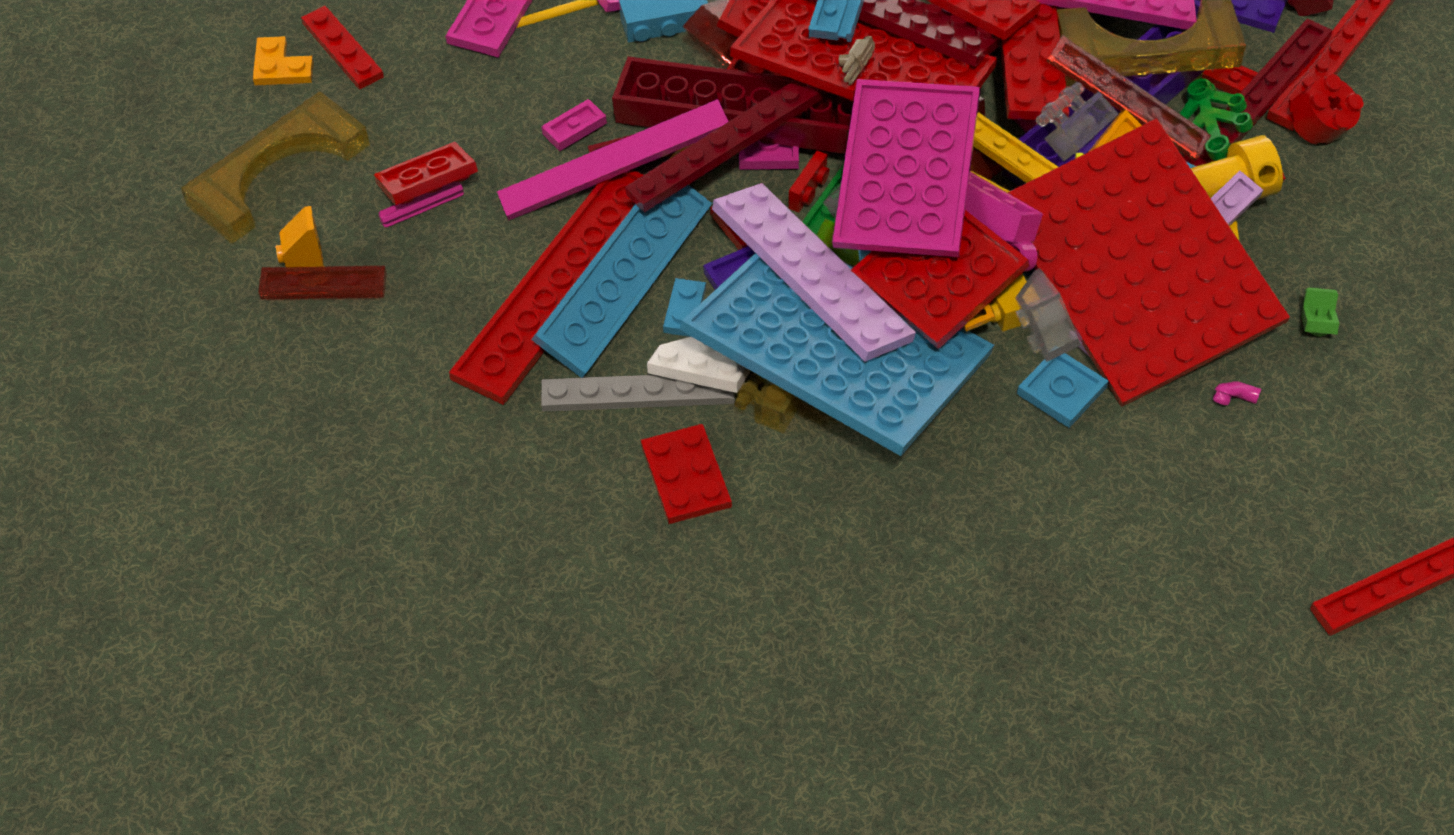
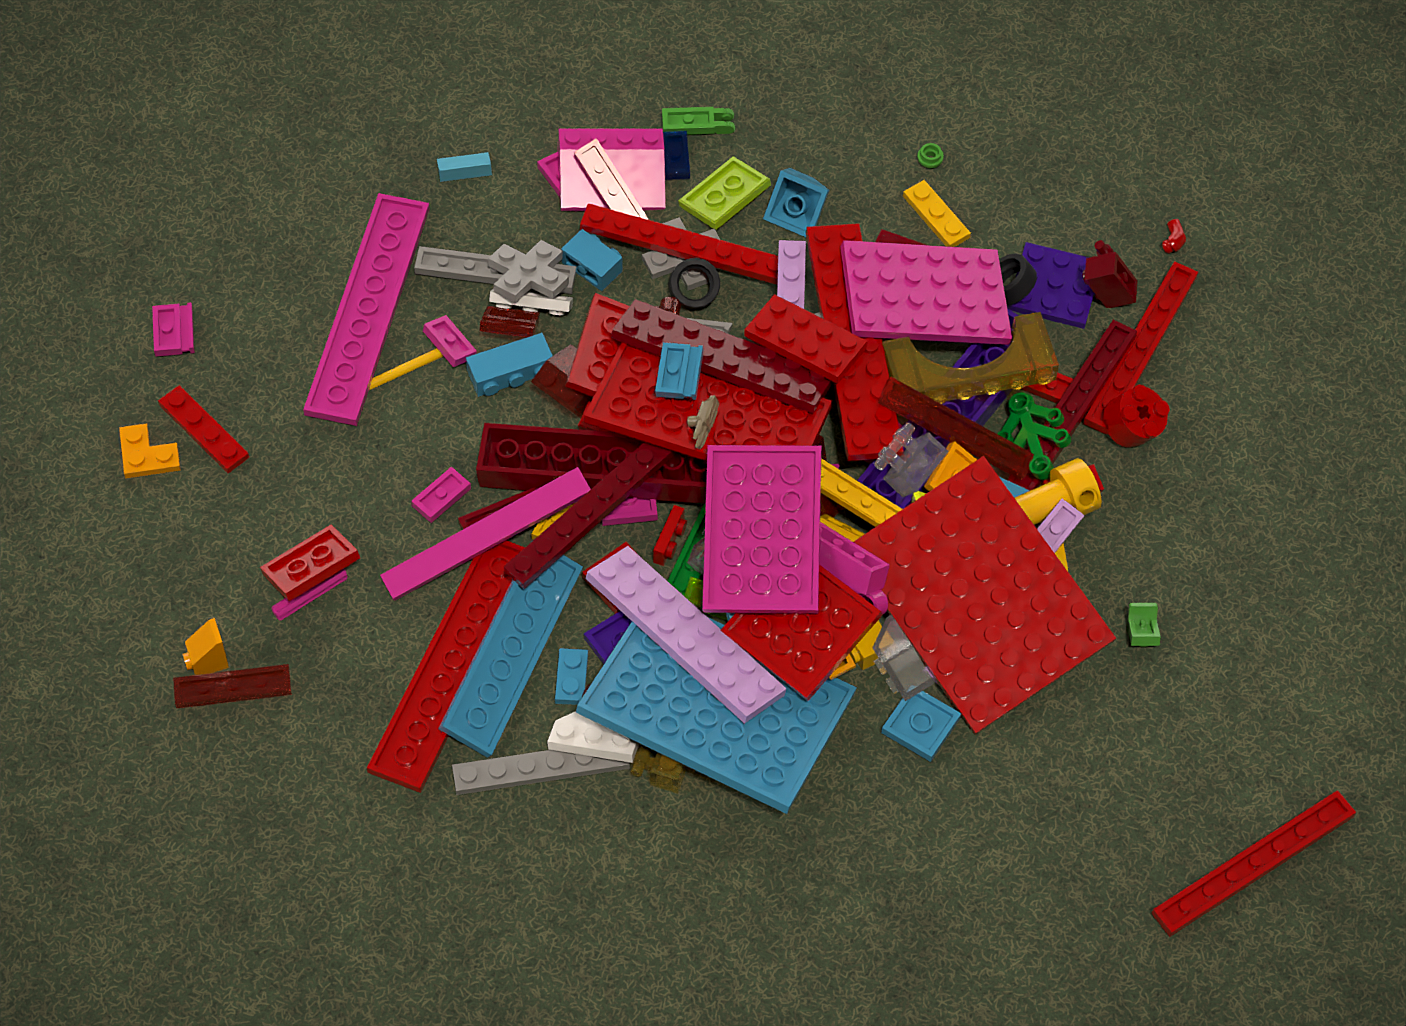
camera: 10 degrees left, 5 degrees up
(312, 126) = (192, 522): clear yellow arch -> none
(685, 473) = (595, 843): red plate -> none
(1236, 389) = (1074, 708): dark pink arm -> none

